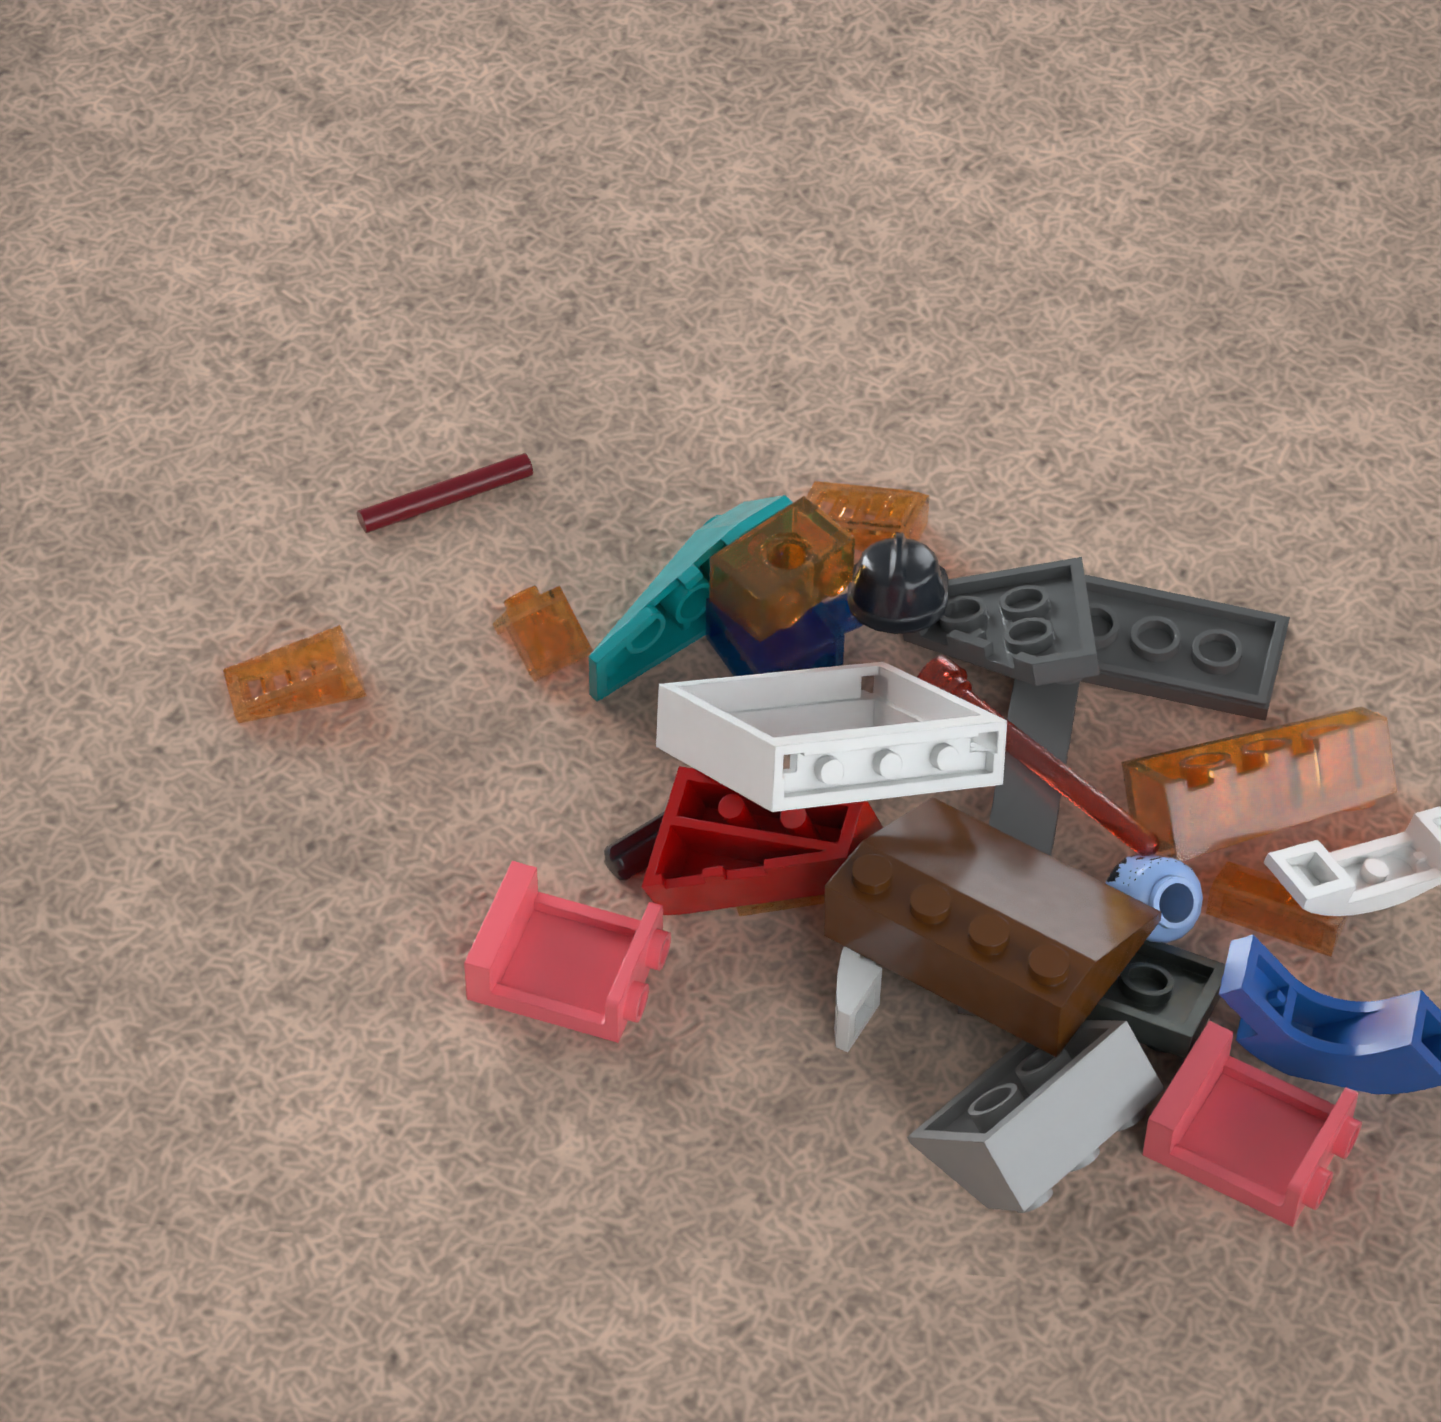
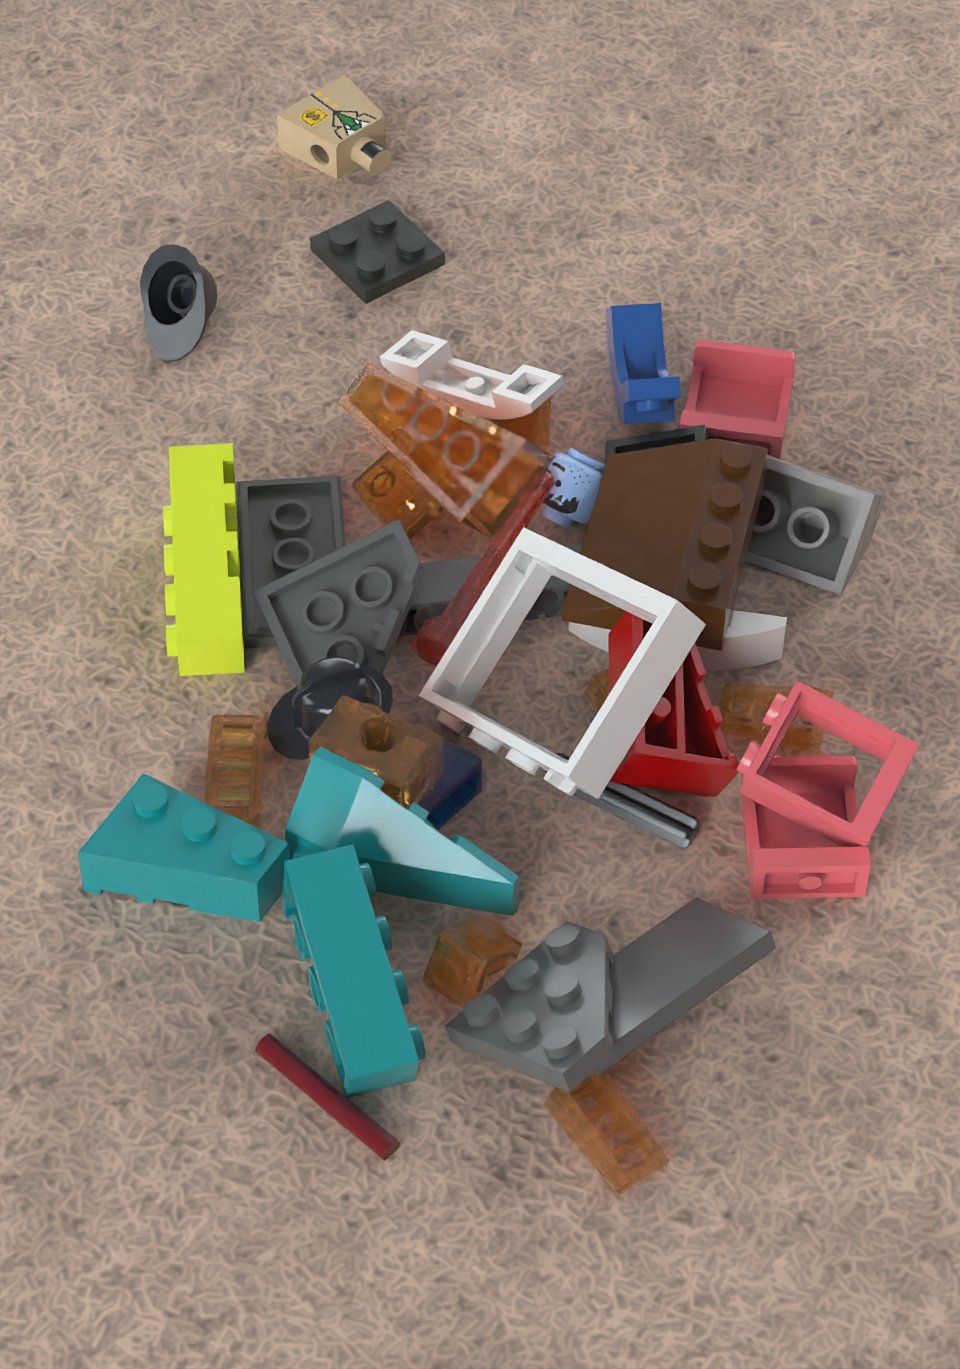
camera: 110 degrees left, 0 degrees up
(428, 746) = (677, 969): none -> dark grey tile
(434, 648) = (546, 1010): none -> dark grey plate
(558, 514) = (351, 972): none -> teal wedge
(565, 918) = (847, 725): none -> coral window
(732, 1035) = (800, 736): none -> clear orange slope
(765, 437) = (184, 853): none -> teal wedge
(1153, 535) = (203, 561): none -> neon yellow wedge
(1223, 719) = (396, 495): none -> clear orange bracket

